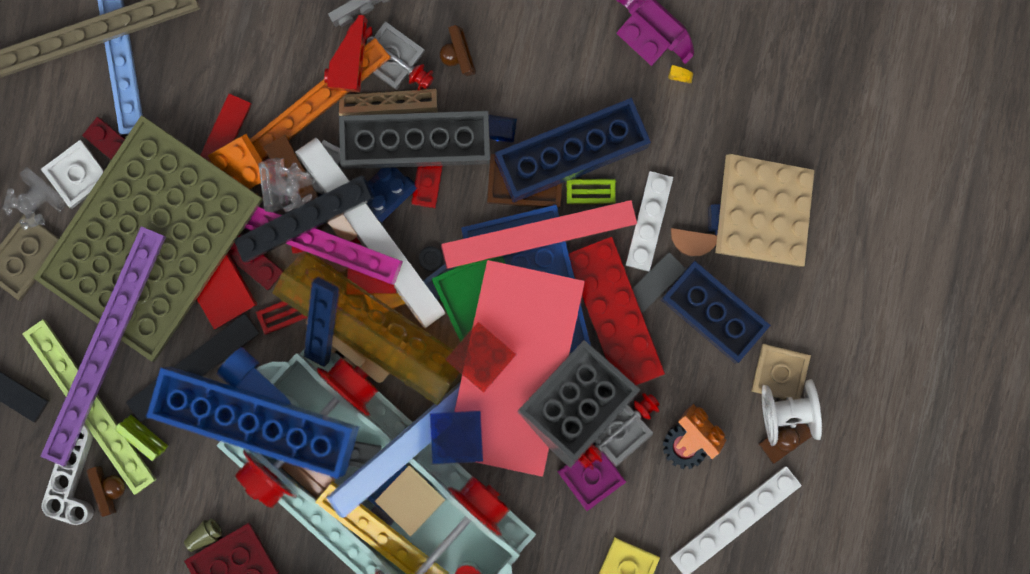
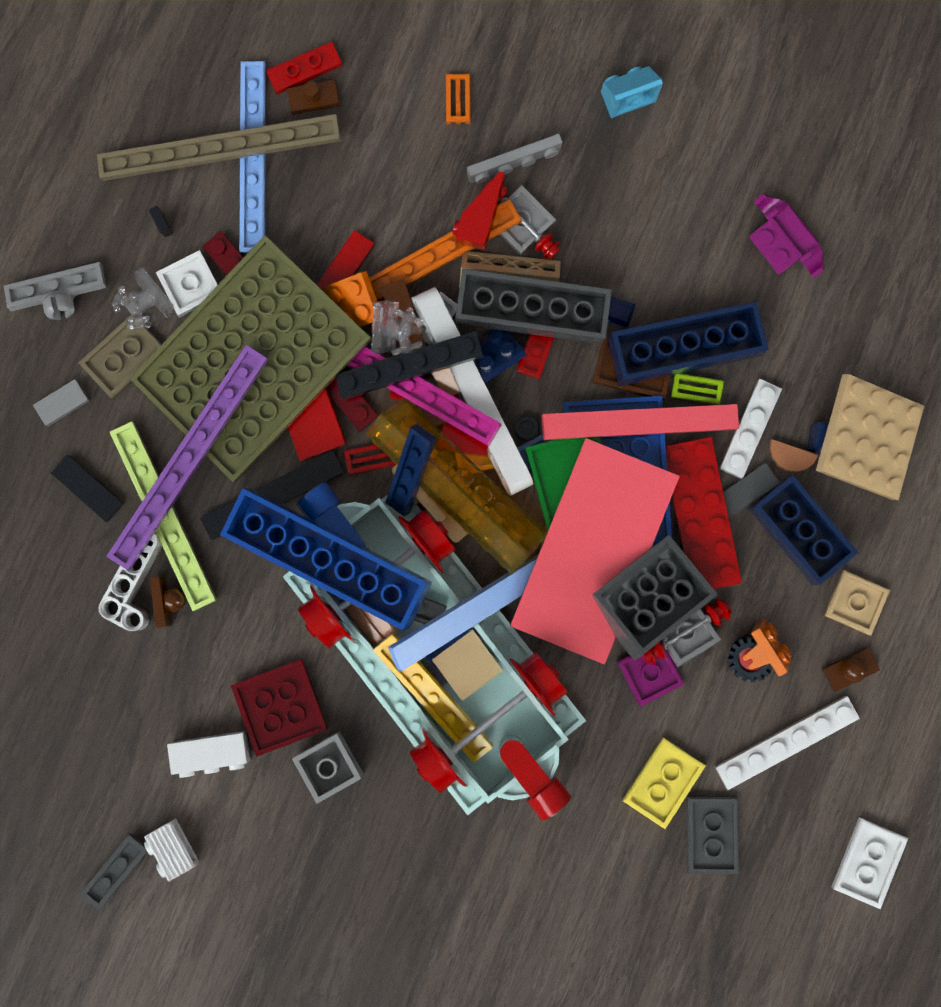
camera: 10 degrees right, 0 degrees up
(37, 118) = (160, 221): none -> black tile
(141, 437) = (209, 555): lime tile -> none
(203, 535) = (255, 663): olive cone -> none
(456, 437) = (525, 610): clear blue plate -> none
(458, 52) = (588, 228): reddish brown tile -> none
(480, 357) = (564, 534): clear red tile -> none
(680, 74) = (805, 287): yellow tile -> none
(804, 410) = (878, 644): white piece -> none

